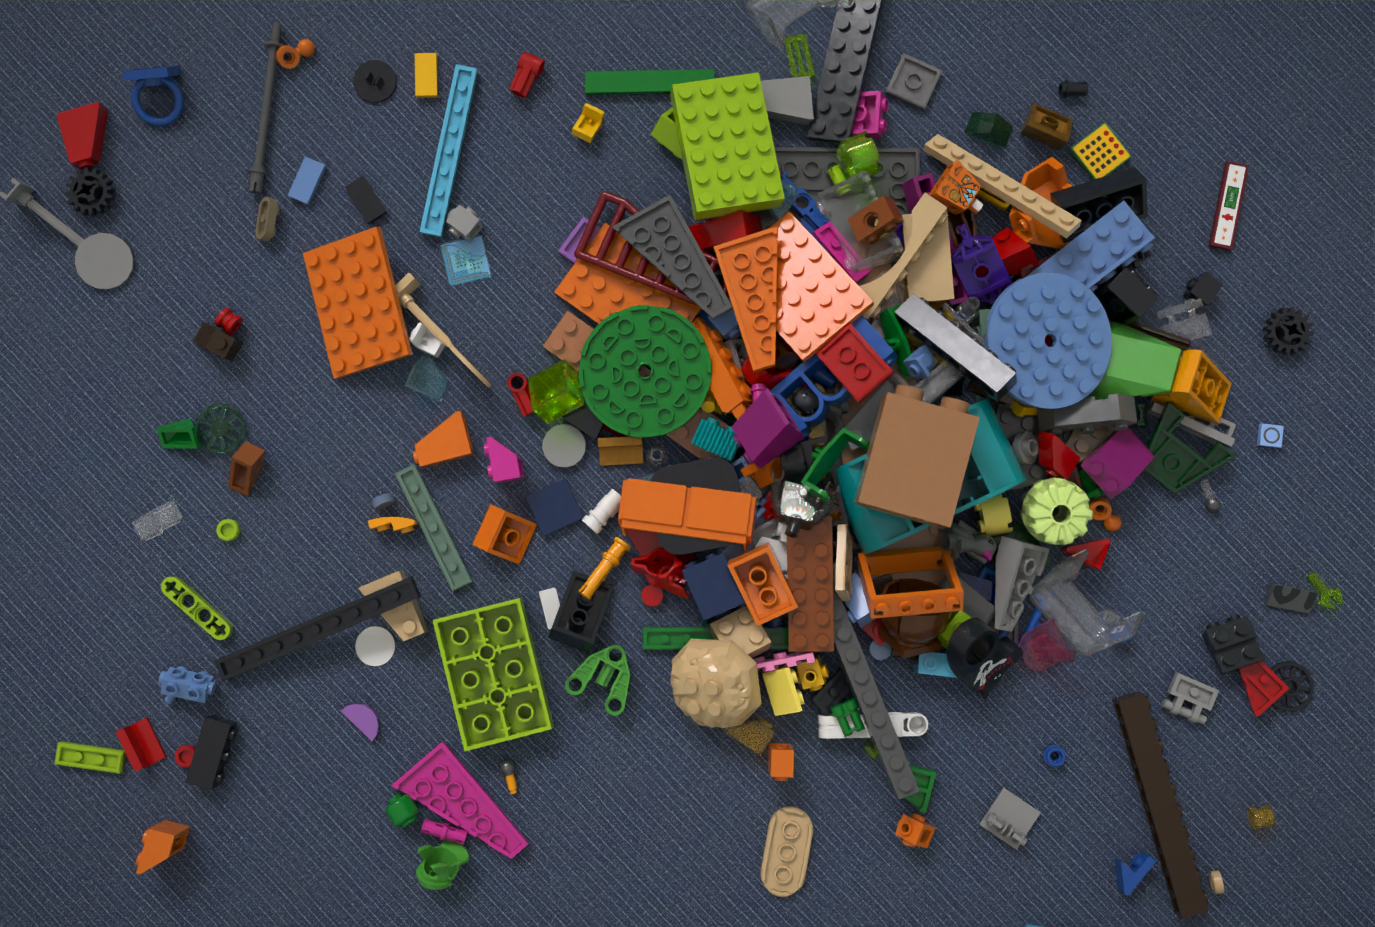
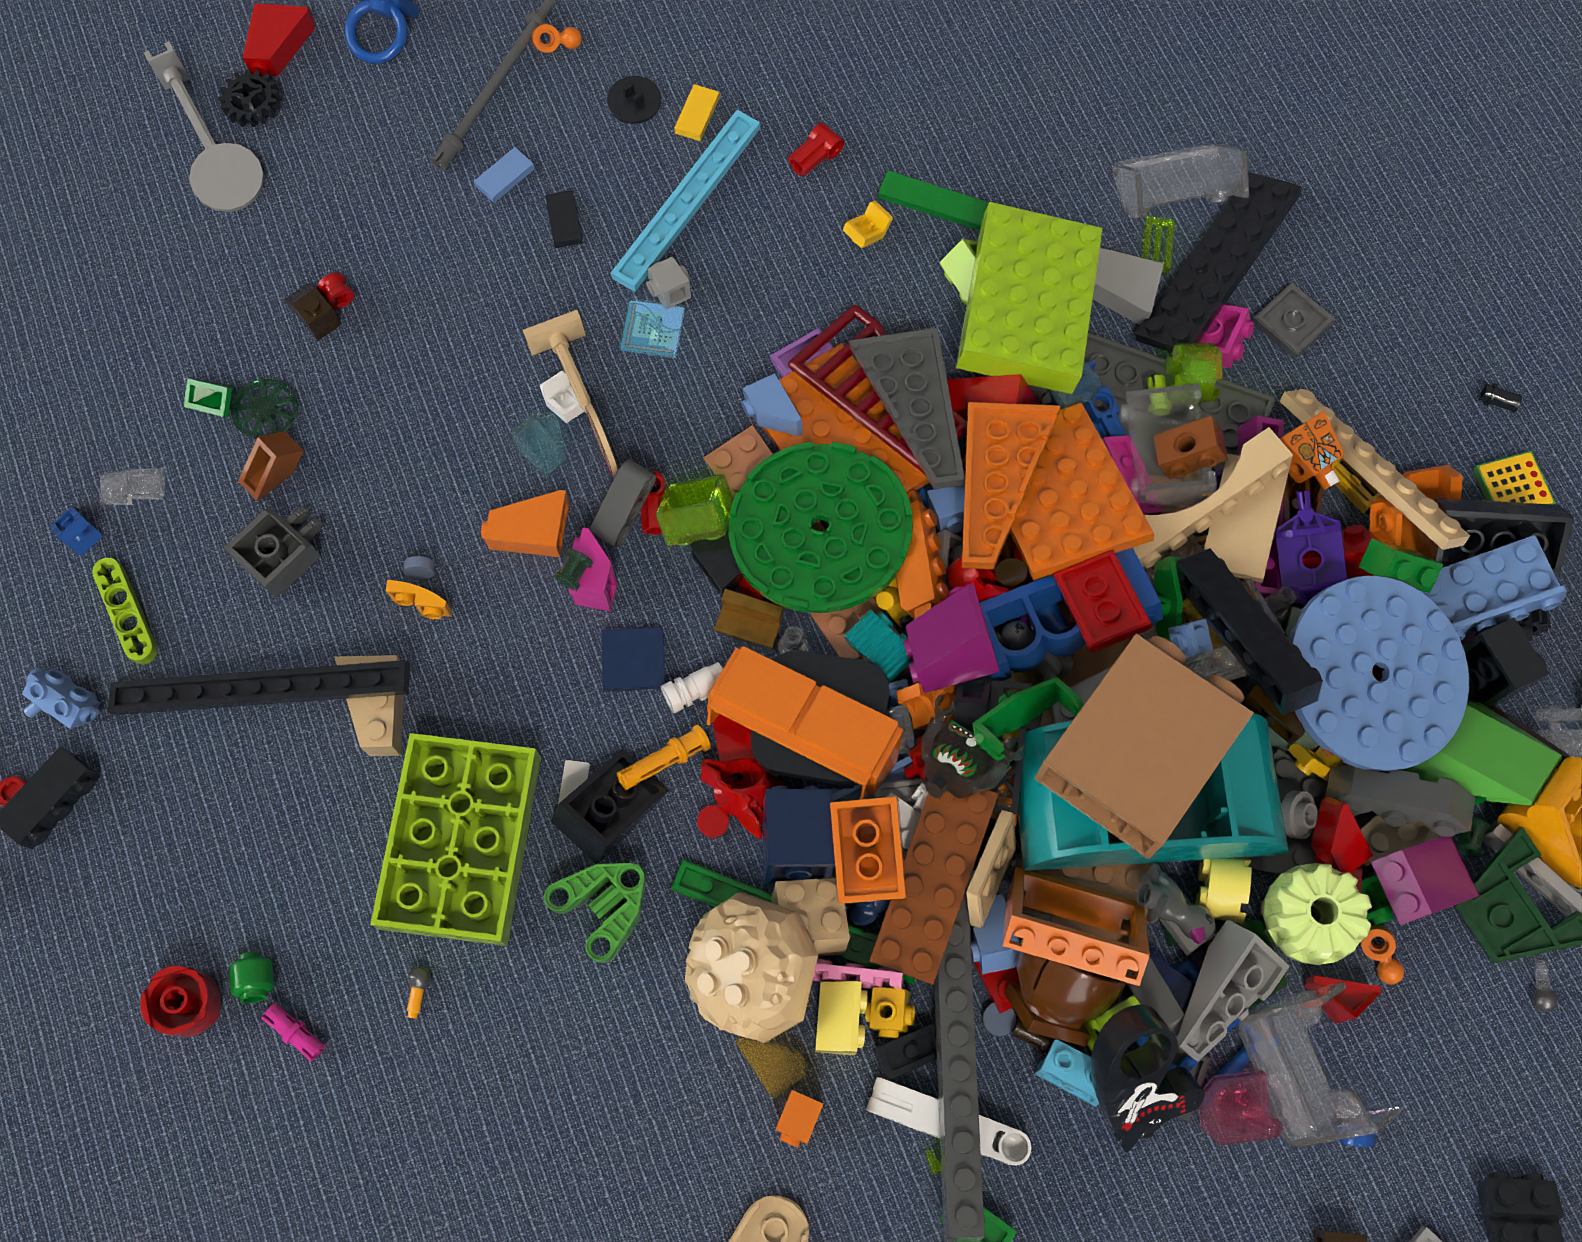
camera: 25 degrees right, 15 degrees down
(133, 567) = (75, 531): none -> blue slope
(228, 530) = (212, 531): lime tile -> none
(266, 219) = (442, 190): dark tan plate -> none
(292, 524) = (274, 549): none -> dark grey hinge
(357, 303) = (498, 324): orange plate -> none
(363, 718) = (262, 835): medium lavender tile -> none
(365, 856) = (162, 997): none -> red brick
(375, 646) = (322, 747): white sticker -> none
(433, 527) = (467, 627): sand green tile -> none
(440, 864) = (265, 1074): bright green helmet -> none
(454, 794) = (333, 988): dark pink wing -> none
(494, 472) = (573, 569): none -> clear green bush
(503, 404) = (623, 503): none -> dark grey beam
(504, 534) = (554, 666): orange slope -> none
(564, 446) = (678, 588): light grey tile -> none
(576, 294) = (771, 406): none -> medium blue slope
(844, 709) = (915, 1080): green piece -> none
(989, 127) = (1375, 405): clear green slope -> none
(1042, 256) = (1401, 564): none -> green brick
(1047, 126) = (1450, 431): pearl gold slope -> none

